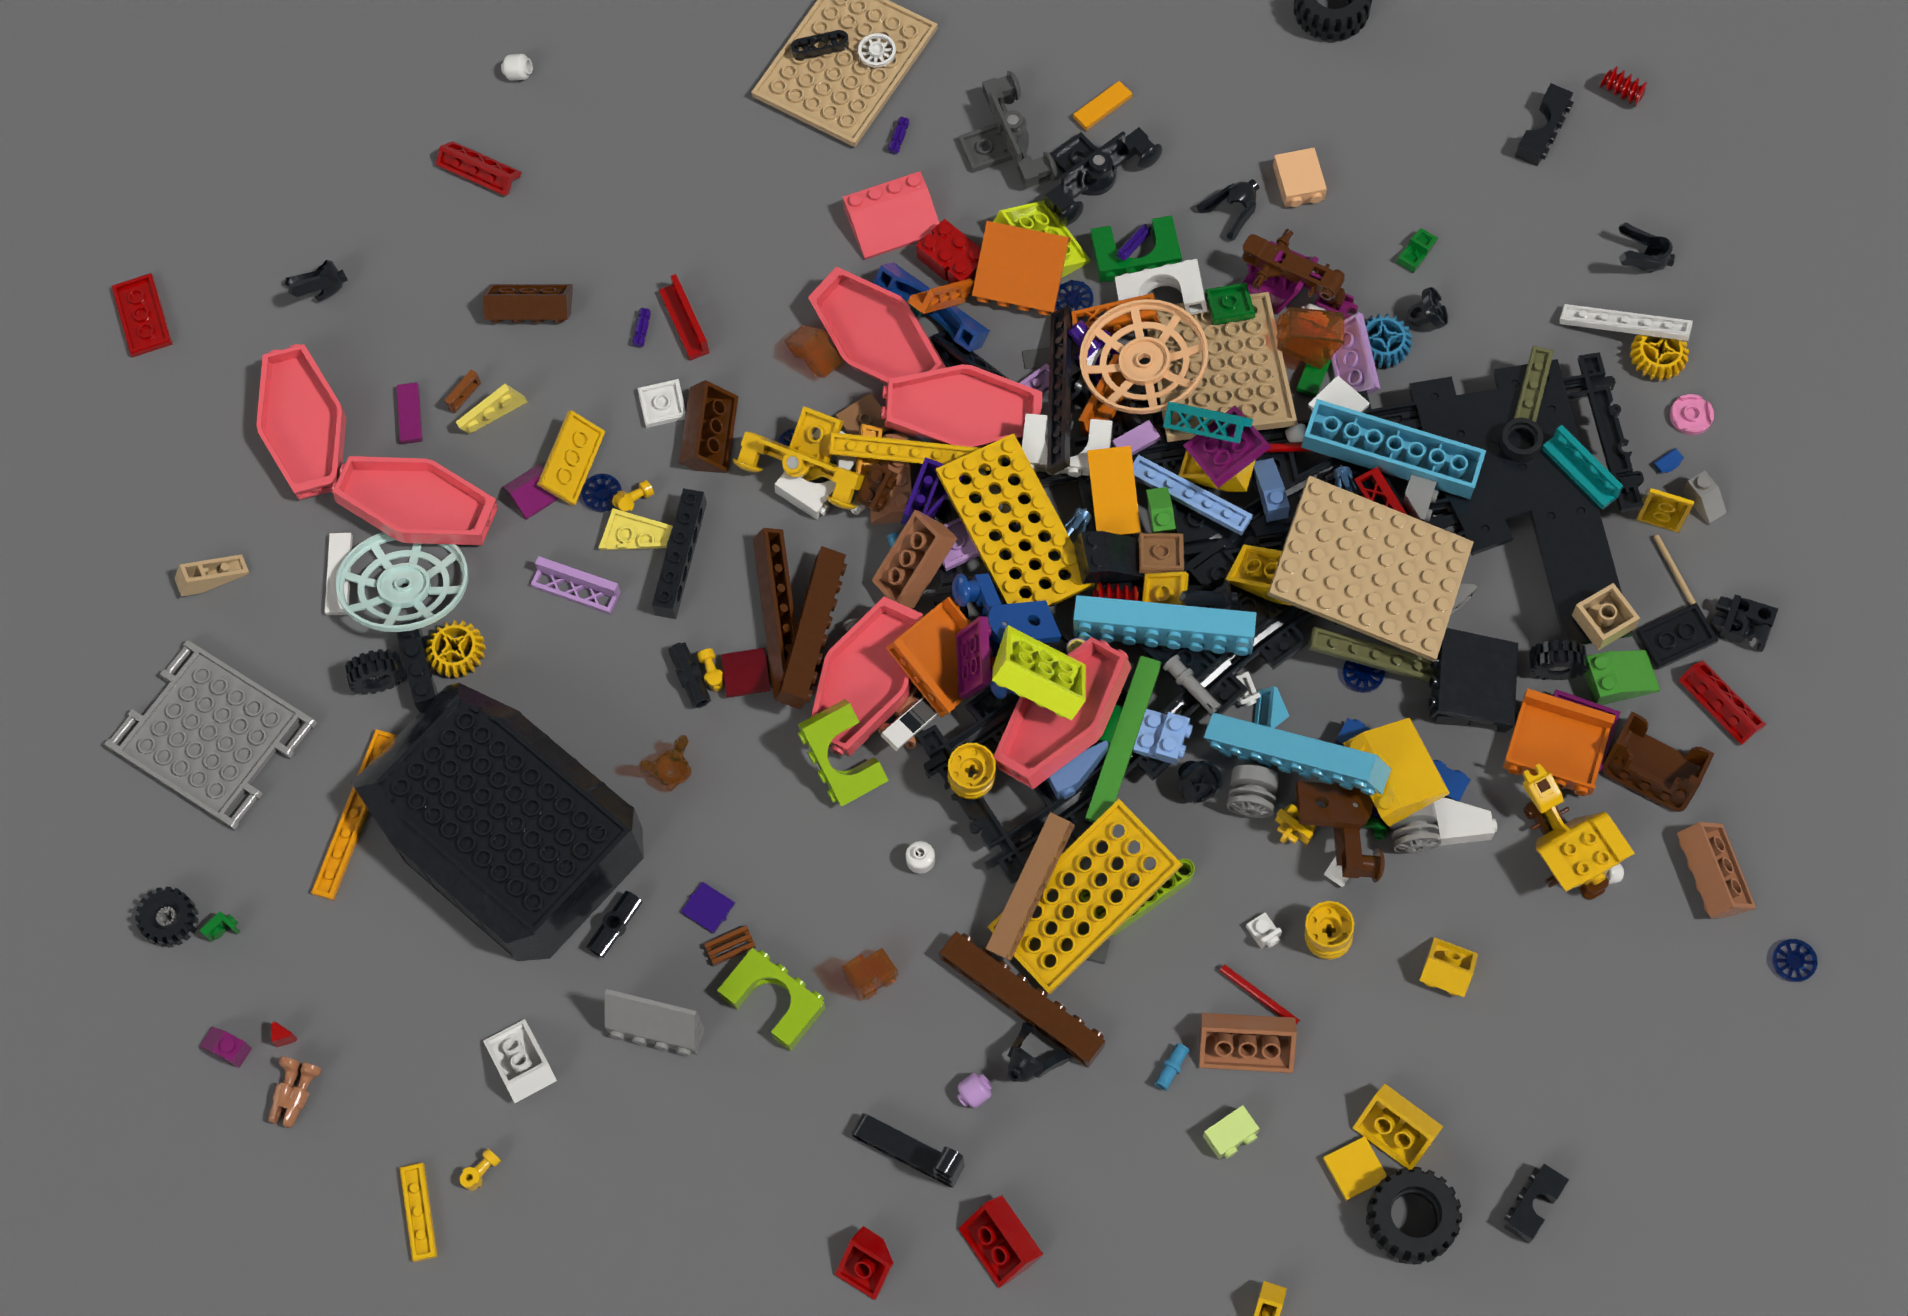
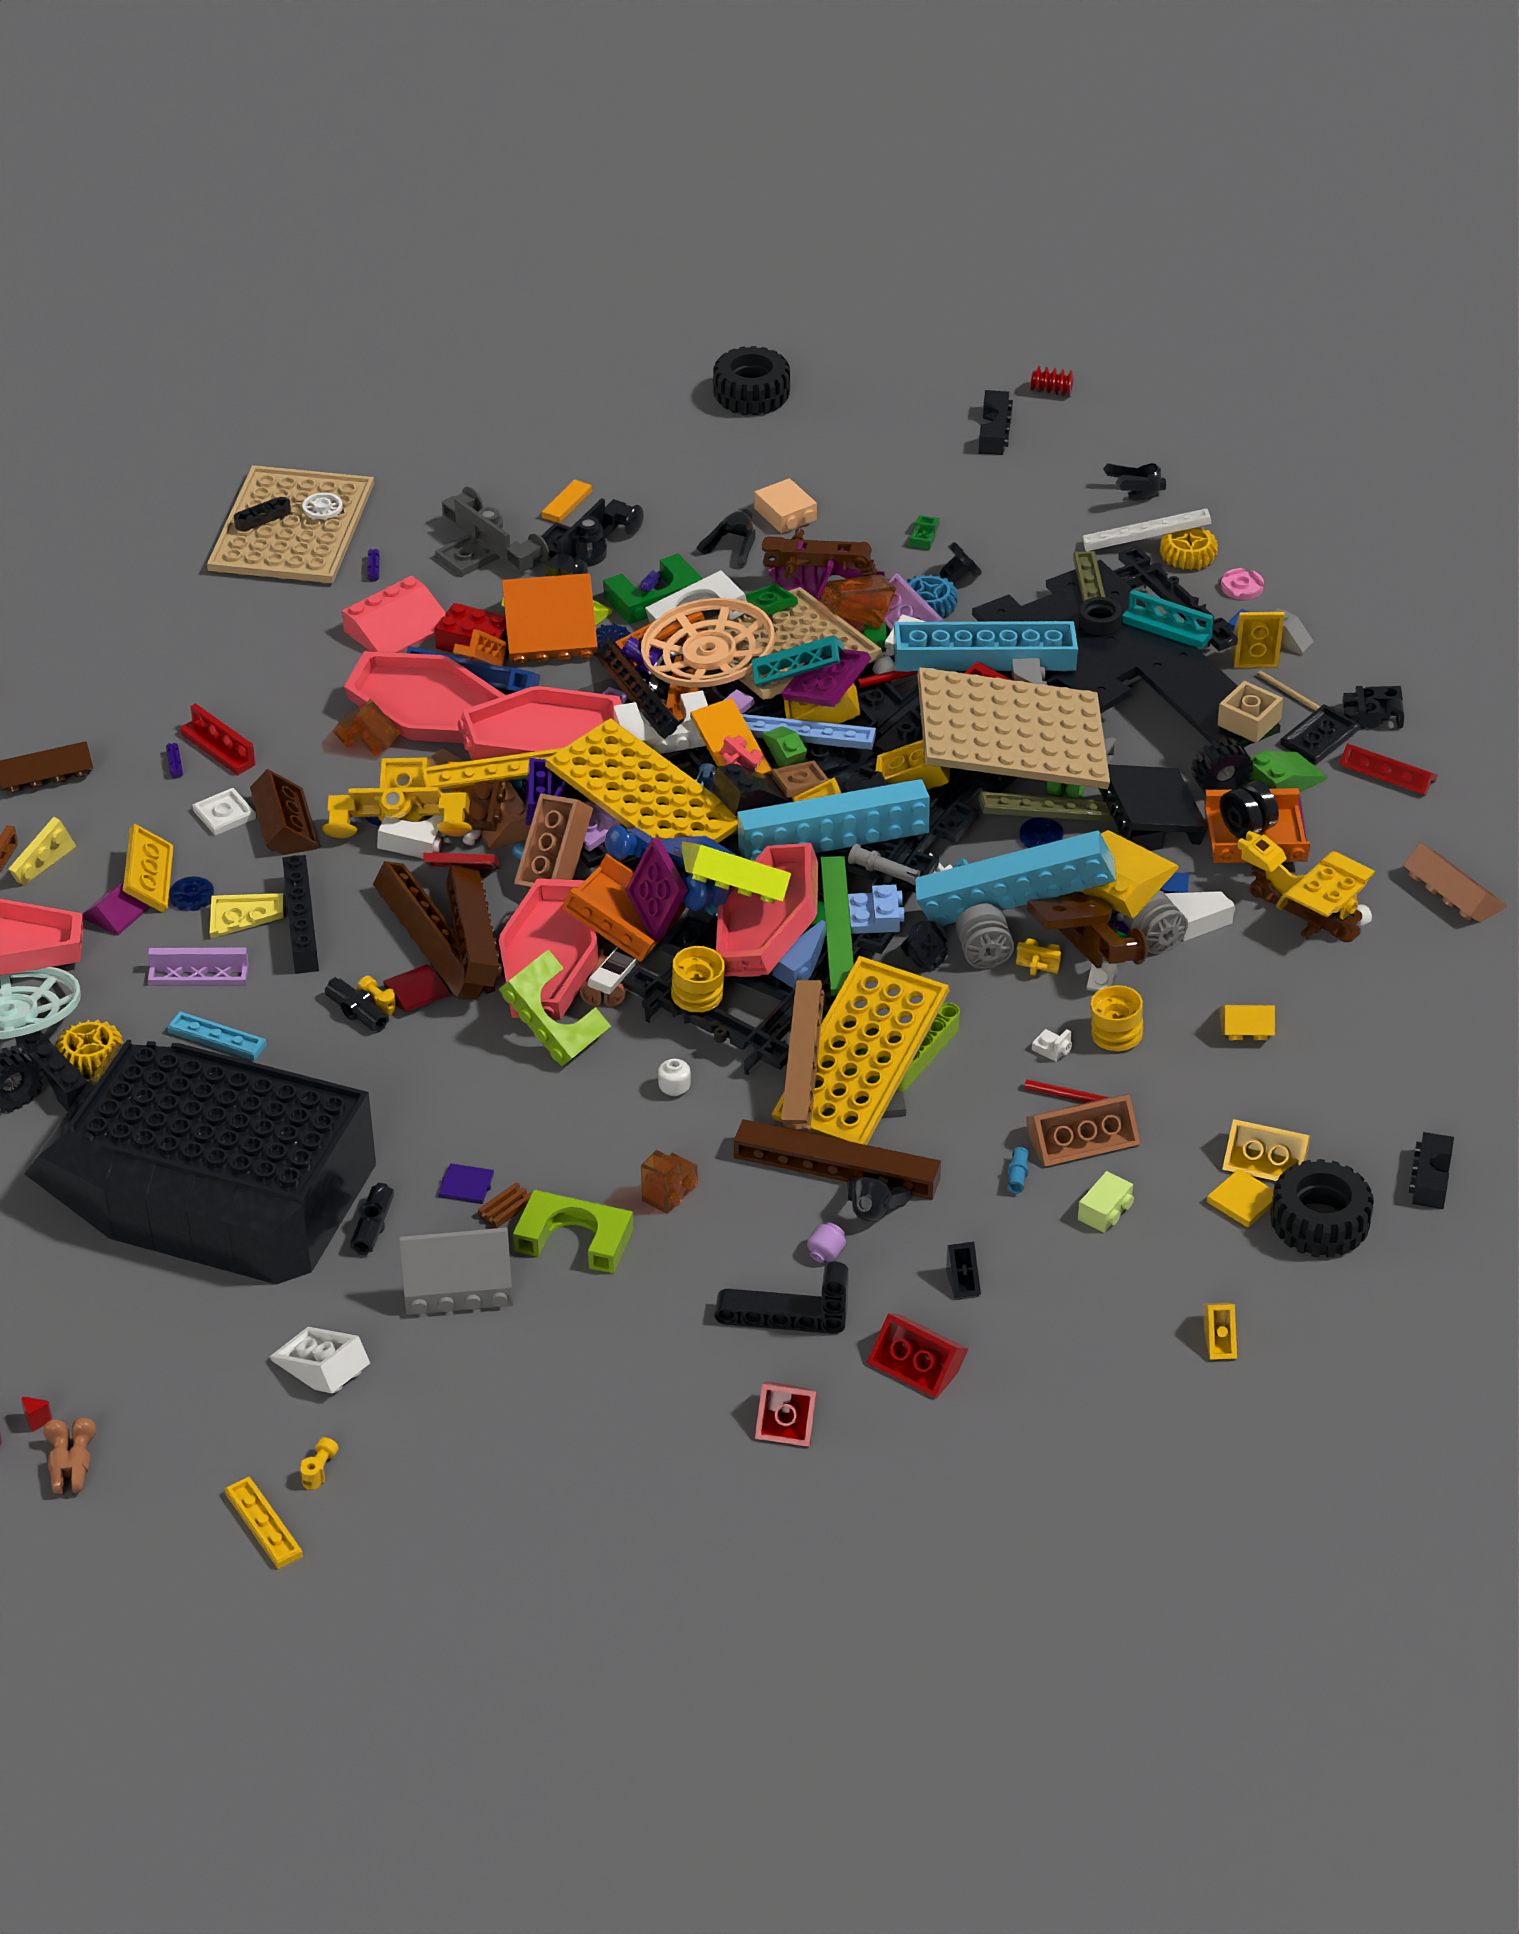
camera: 25 degrees left, 25 degrees down
(348, 829) = (32, 1226): light orange tile -> none
(565, 667) = (217, 1036): none -> medium azure tile
(625, 501) = (223, 886): yellow leg -> none
(668, 761) = (371, 1073): clear orange hair -> none
(835, 539) = (473, 860): none -> red tile
(1075, 1167) = (963, 1269): none -> black slope
(1108, 506) = (735, 753): none -> coral hips
(1271, 490) = (886, 710): medium blue slope -> none
(1554, 731) = (1249, 809): none -> black wheel
(1655, 767) = (1355, 831): reddish brown windscreen -> none

